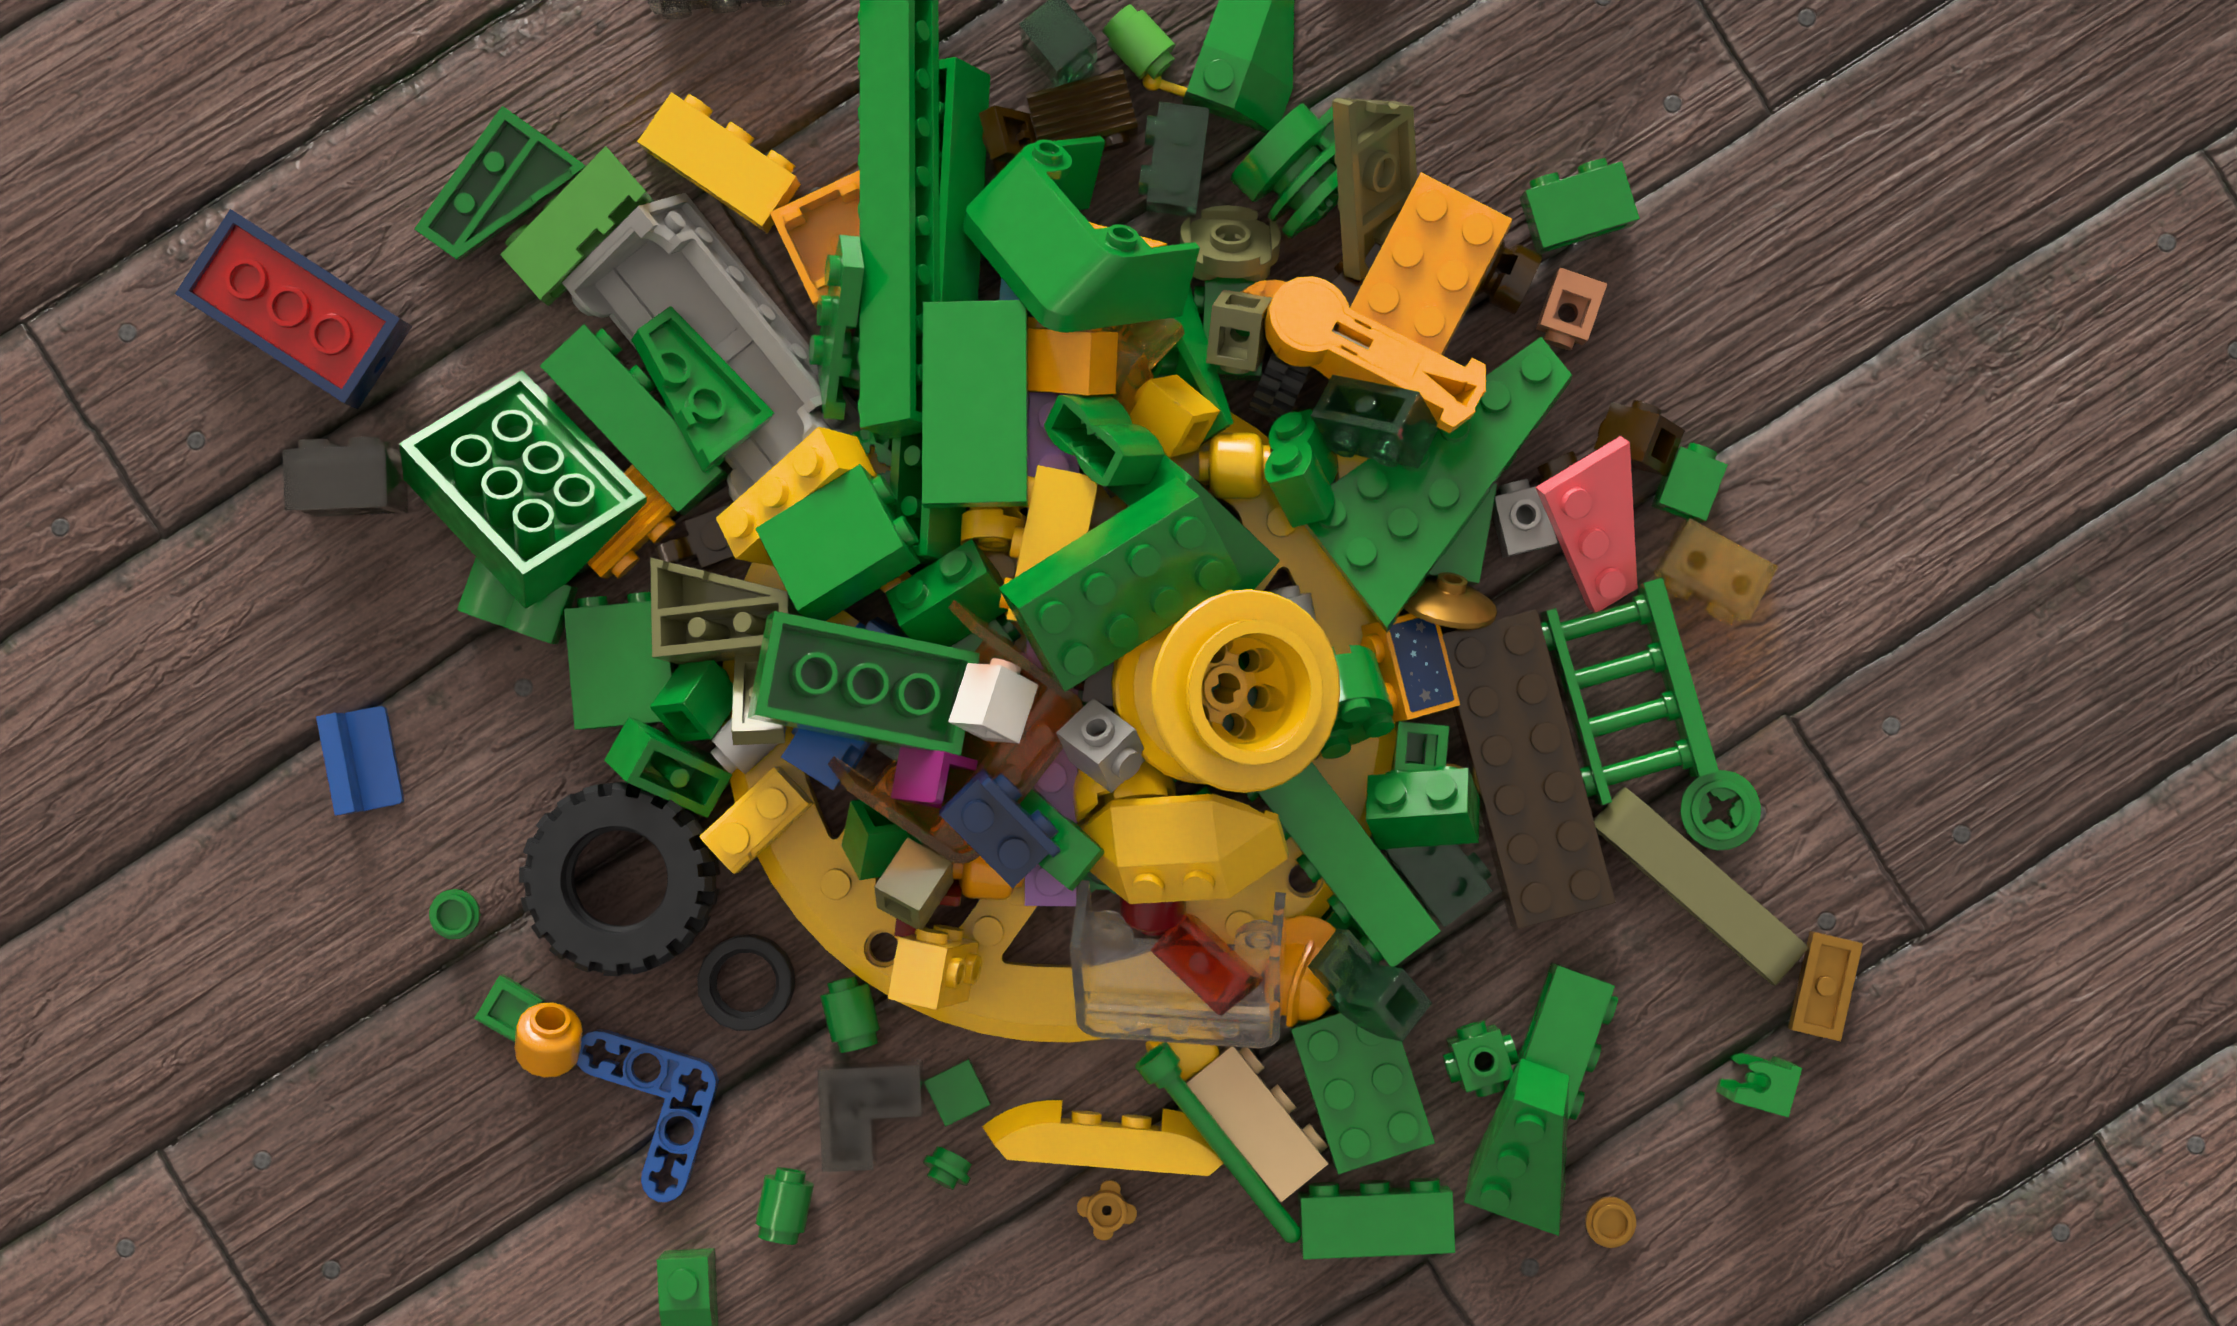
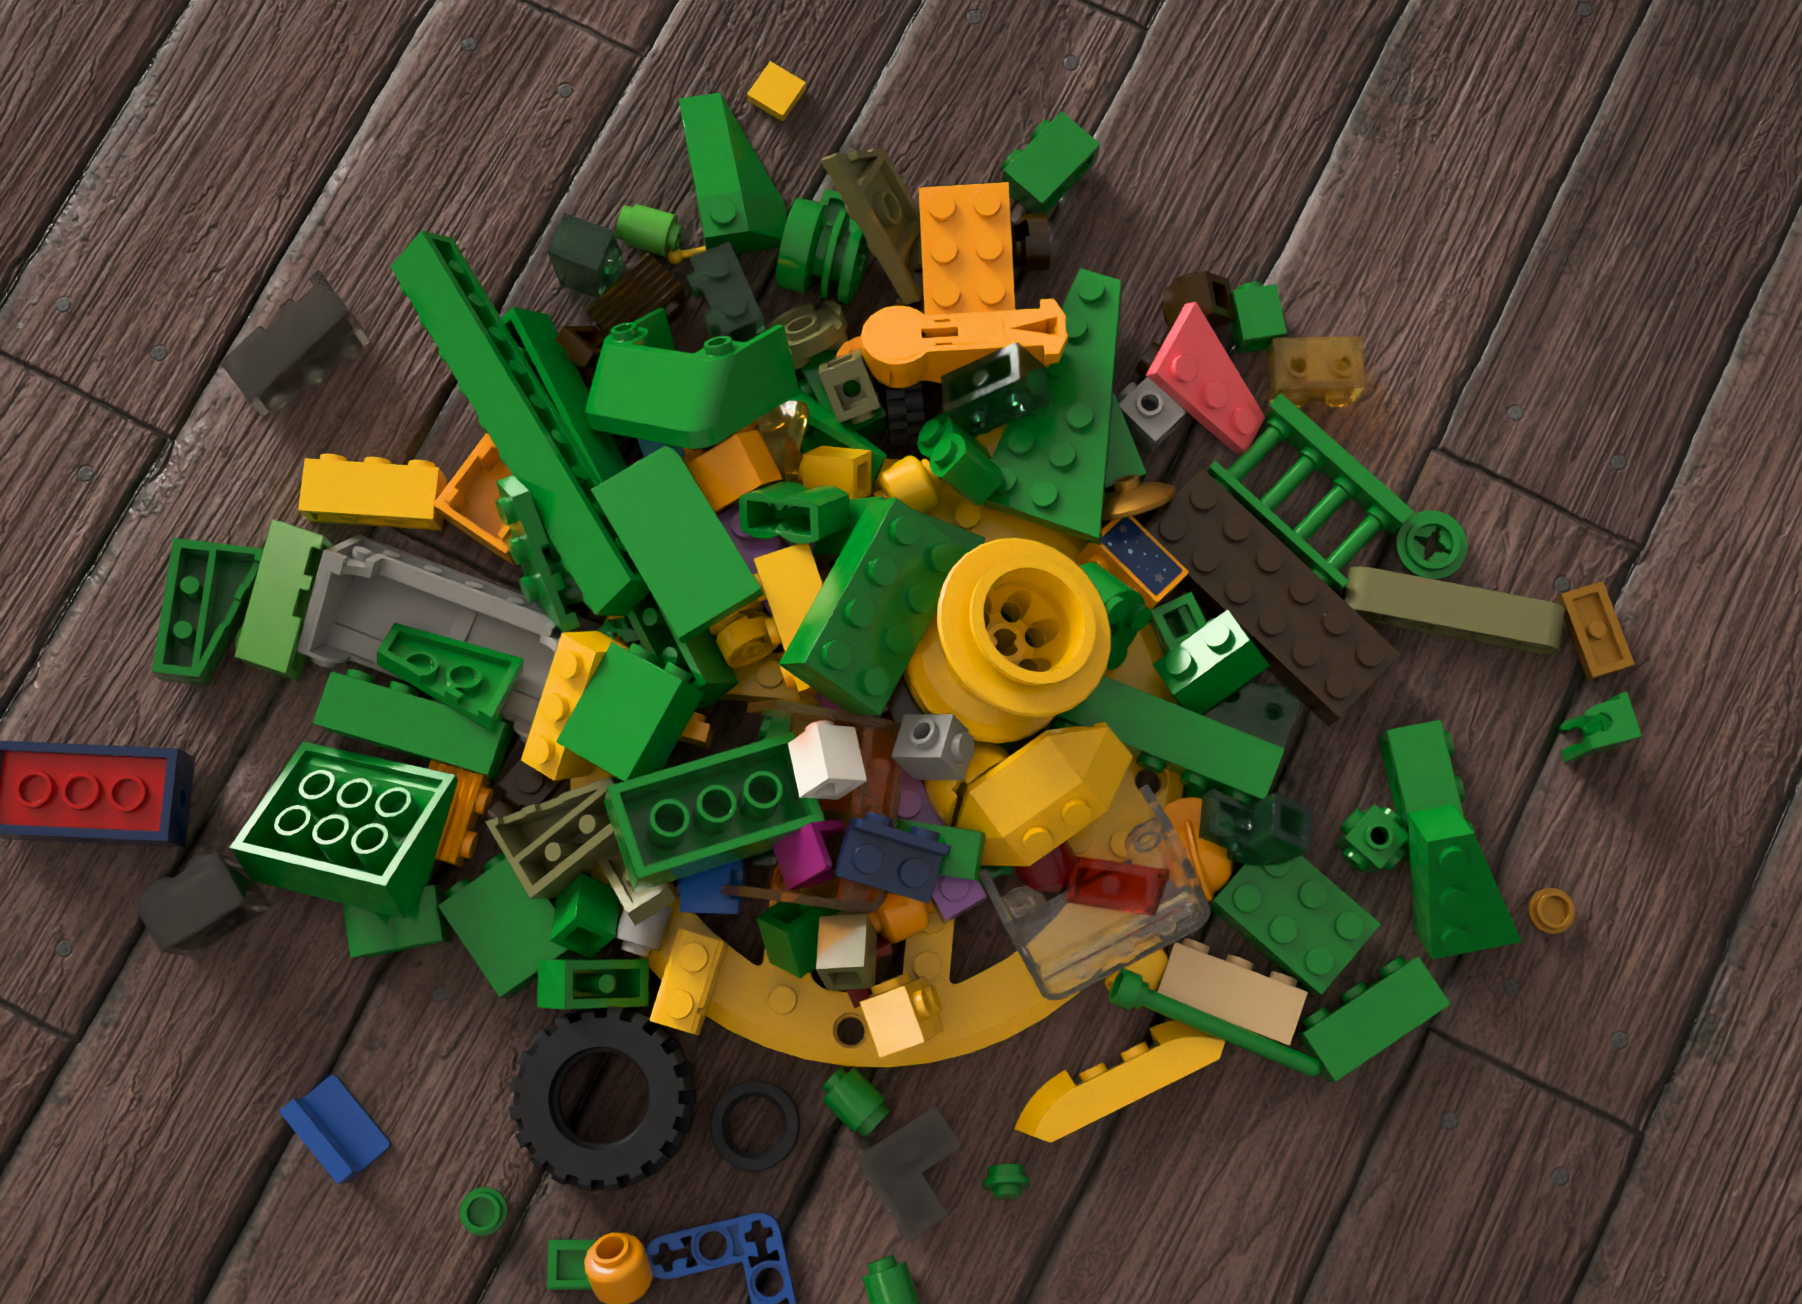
camera: 30 degrees left, 10 degrees down
(924, 597) = (725, 719): green brick -> none
(957, 1092) = (977, 1114): green tile -> none
(1104, 1224) = (1166, 1134): pearl gold plate -> none
(1581, 294) = (1089, 228): nougat brick -> none

